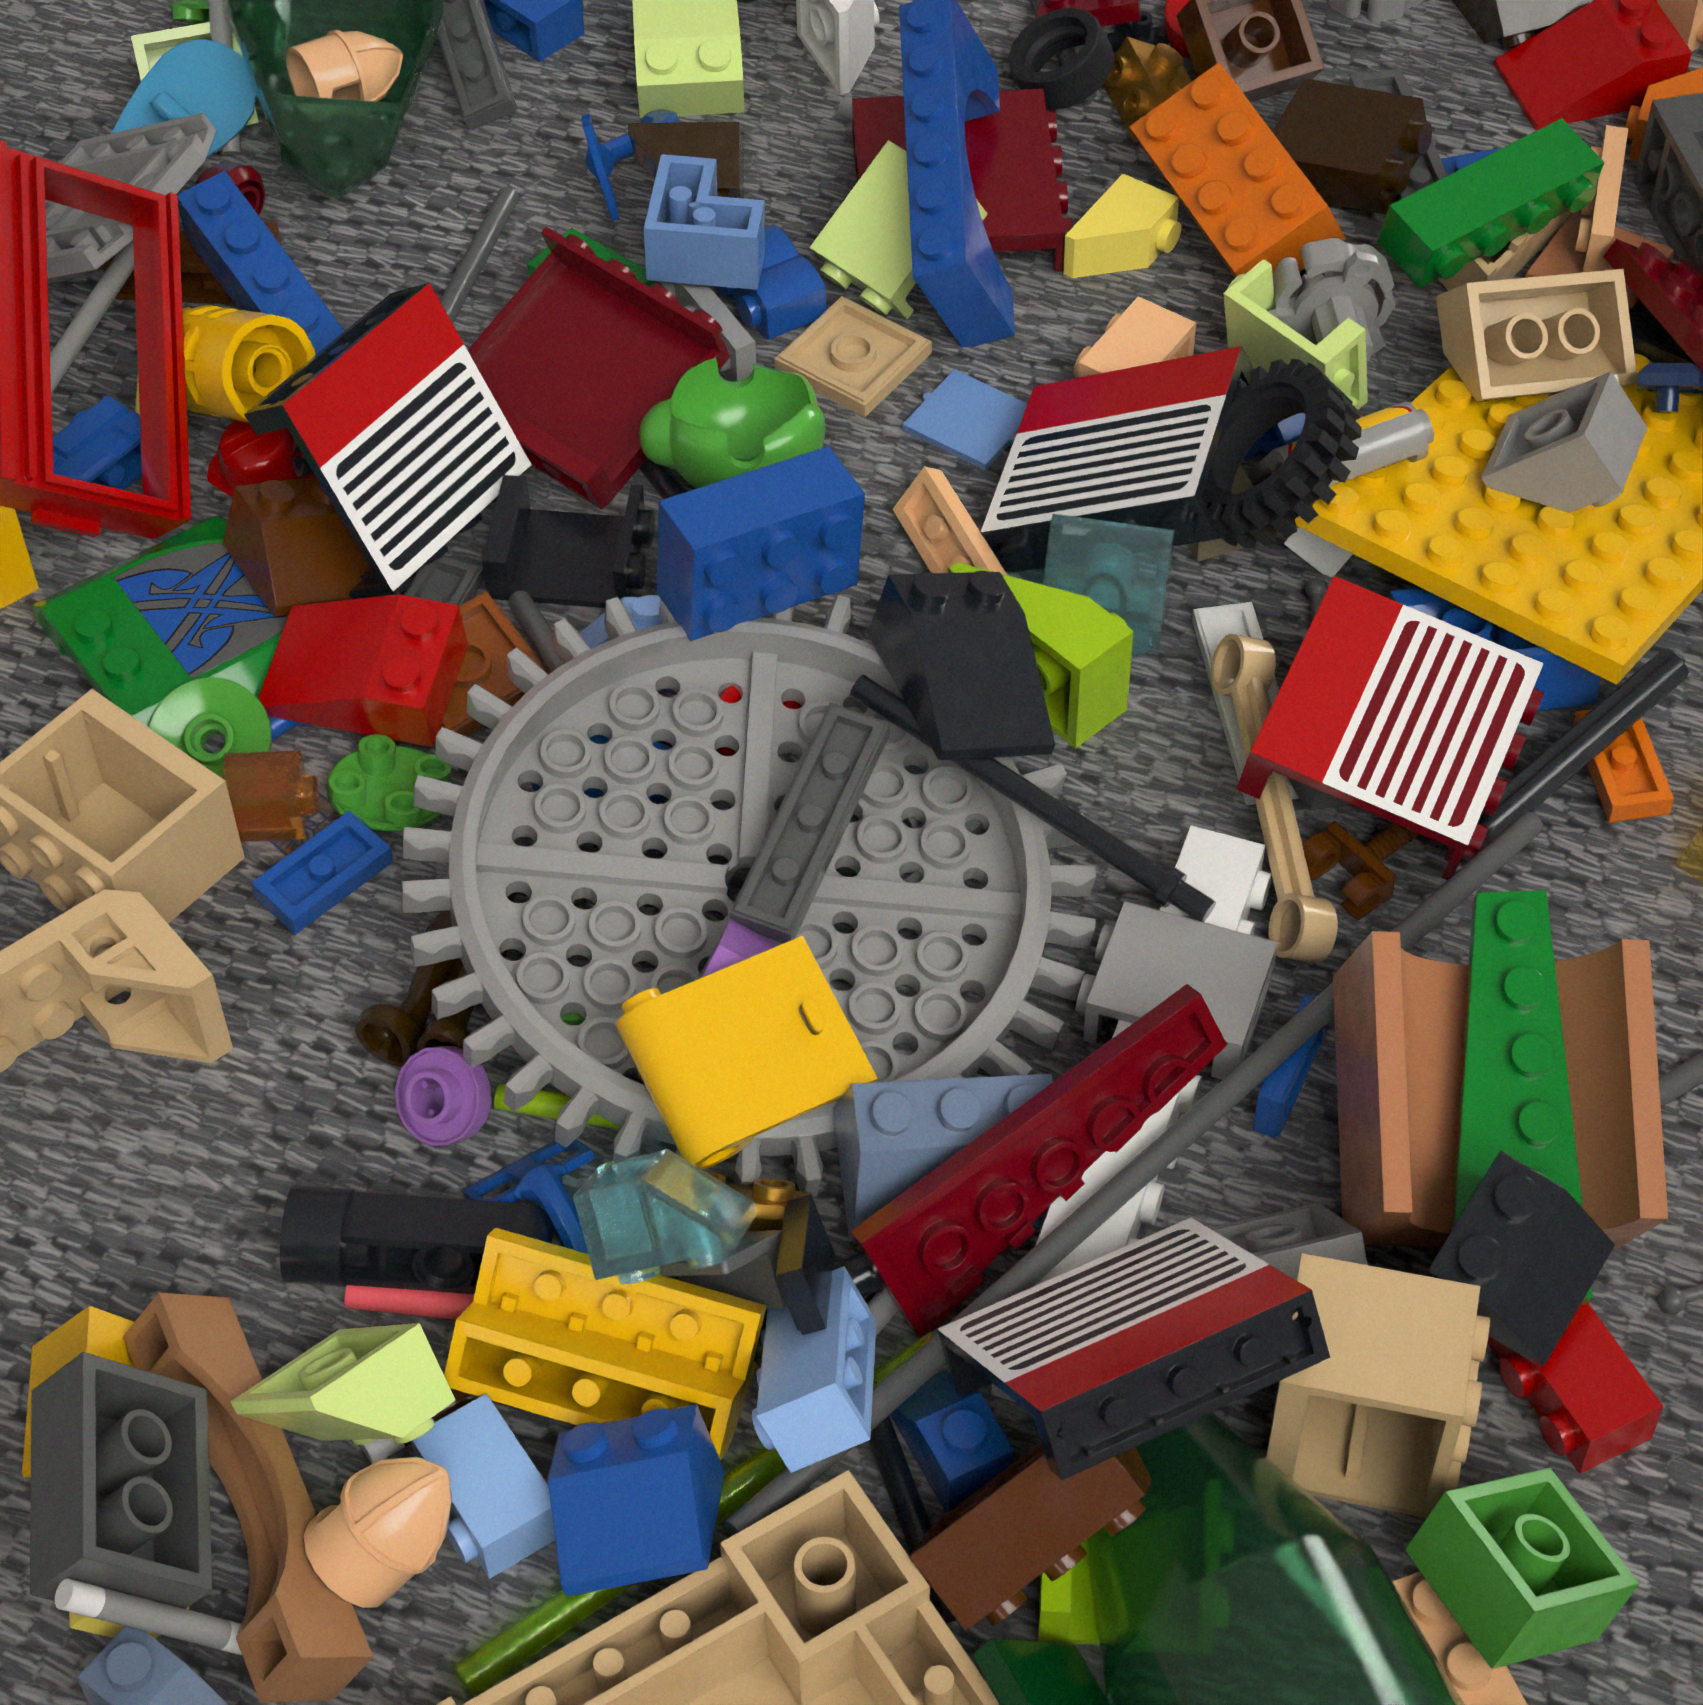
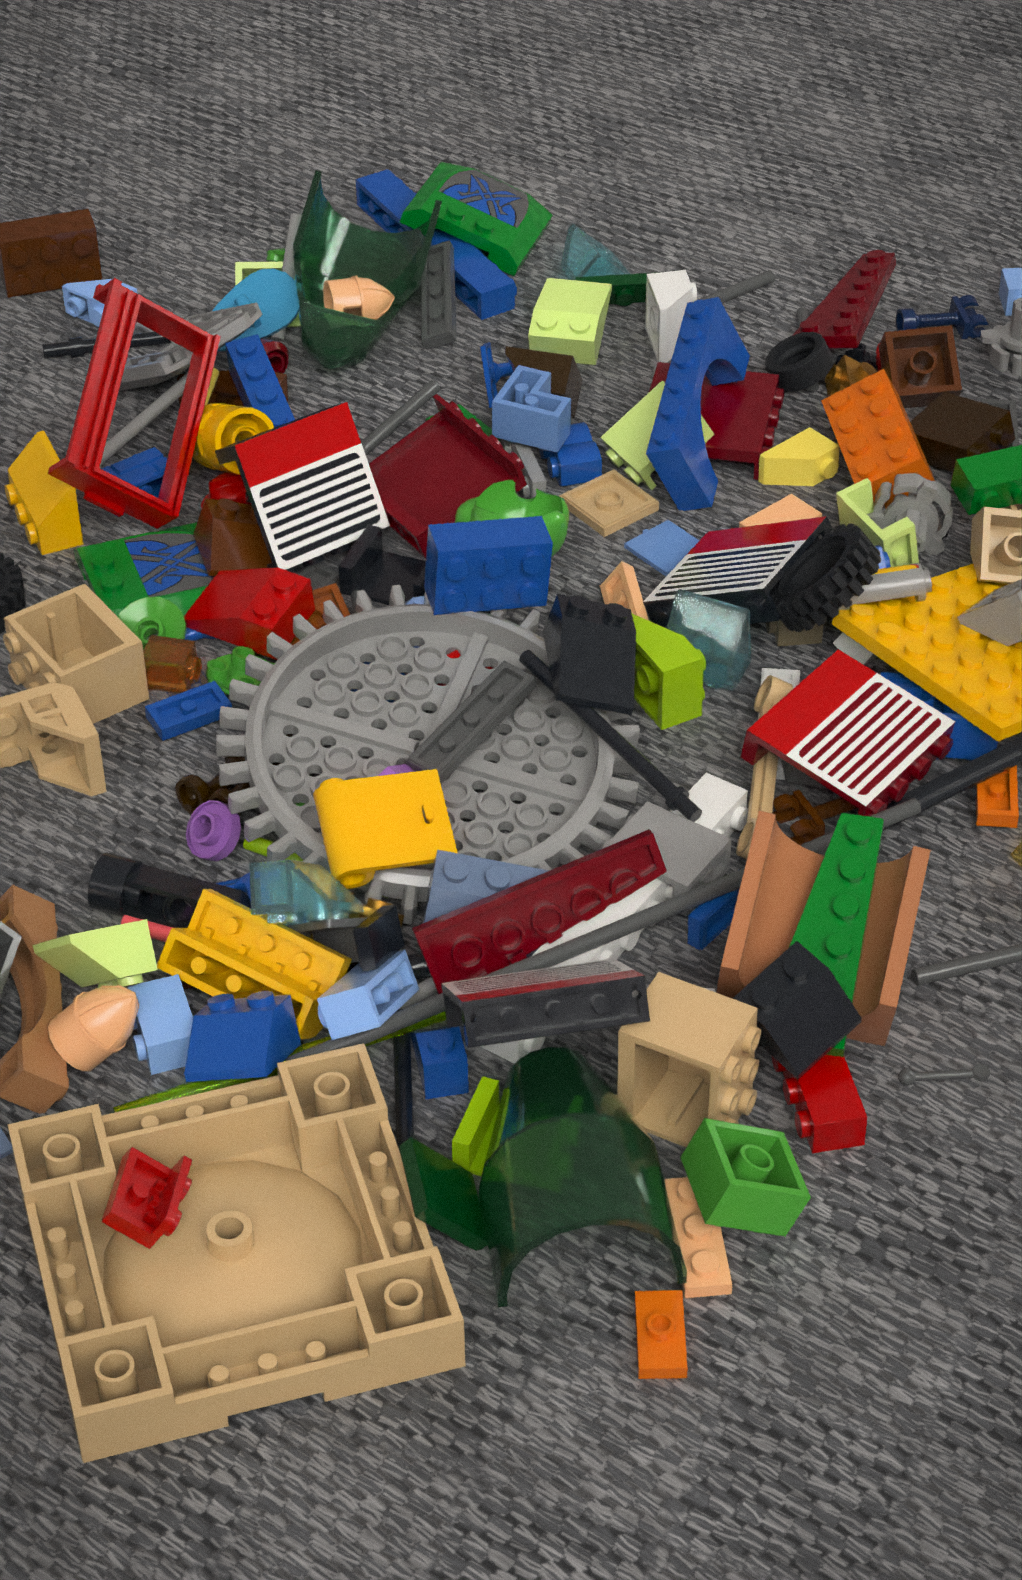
camera: 15 degrees right, 10 degrees down
(1022, 1527) = (457, 1087): reddish brown slope -> none

